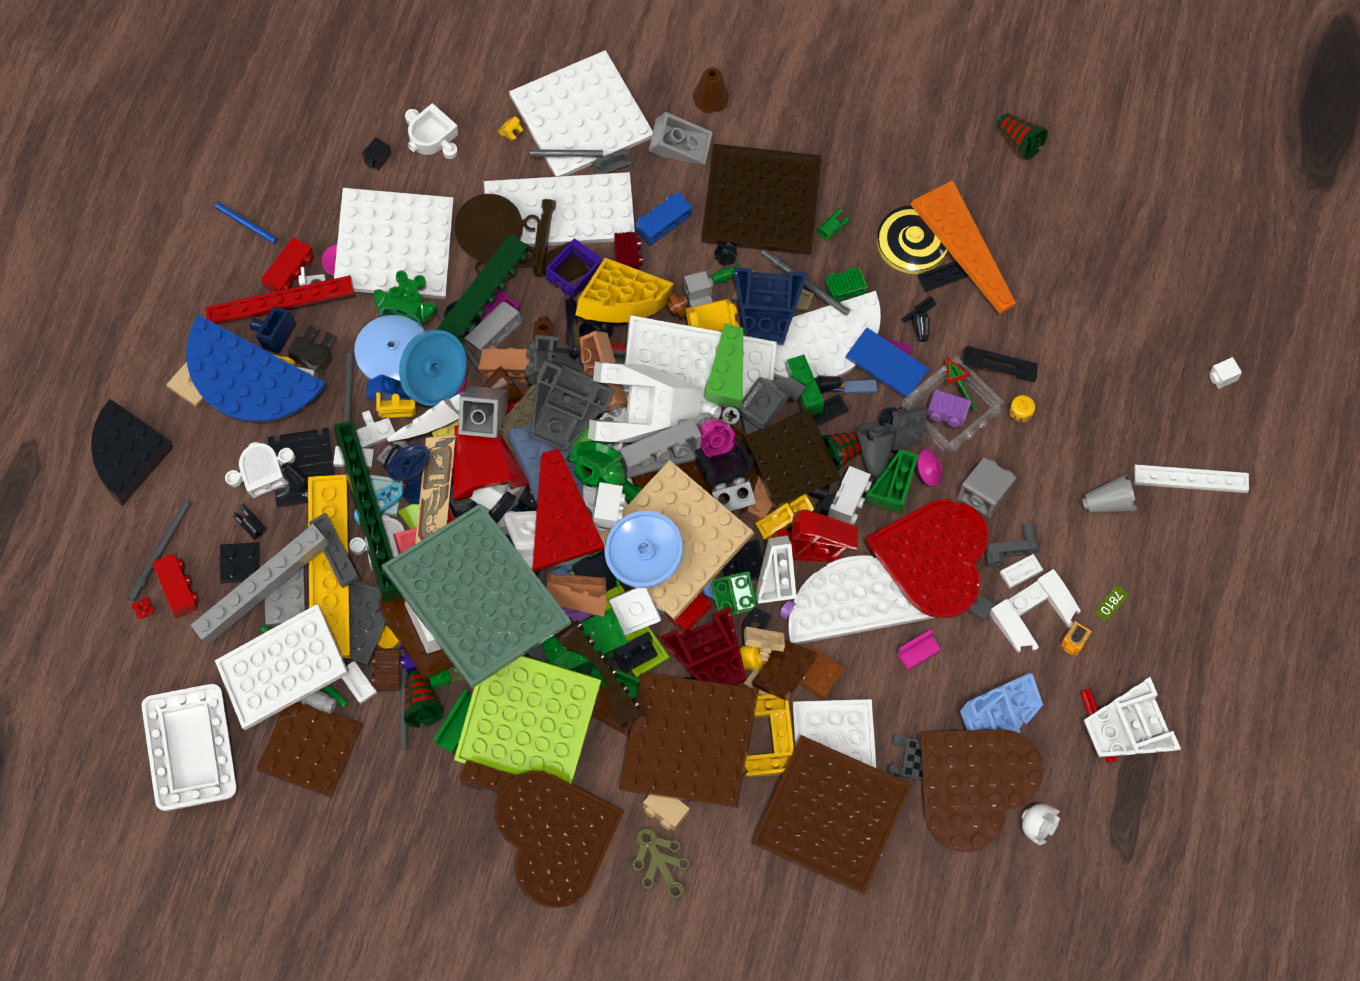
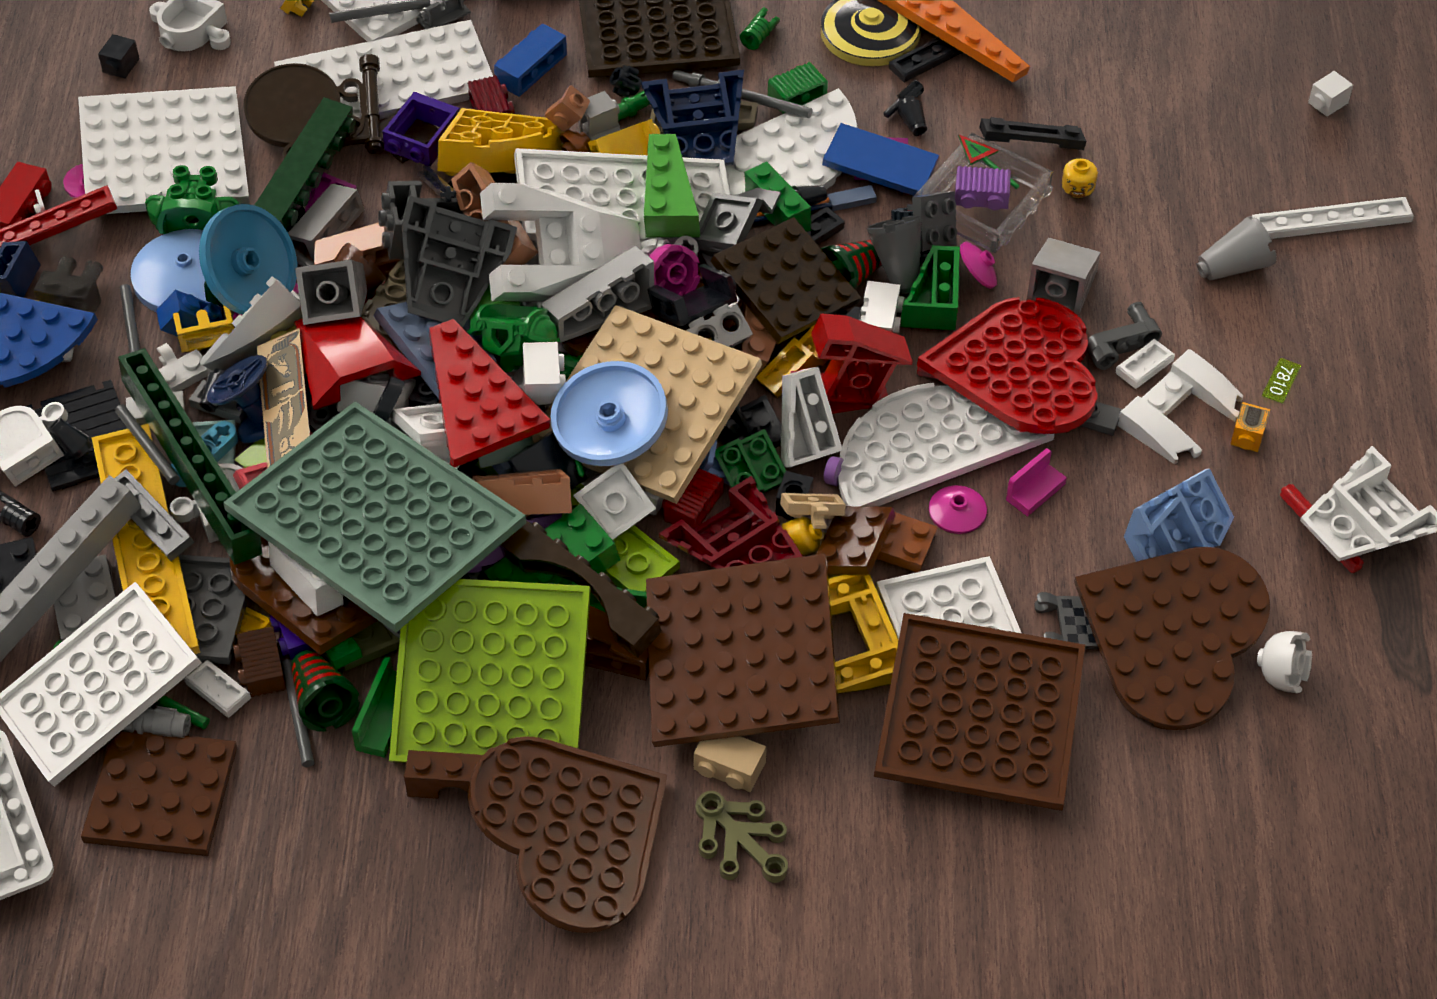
camera: 10 degrees left, 15 degrees down
(342, 492) = (147, 444): none -> dark grey bar
(635, 653) = (629, 557): black bracket -> none
(677, 283) = (568, 109): none -> nougat bracket
(859, 663) = (954, 517): none -> dark pink dish

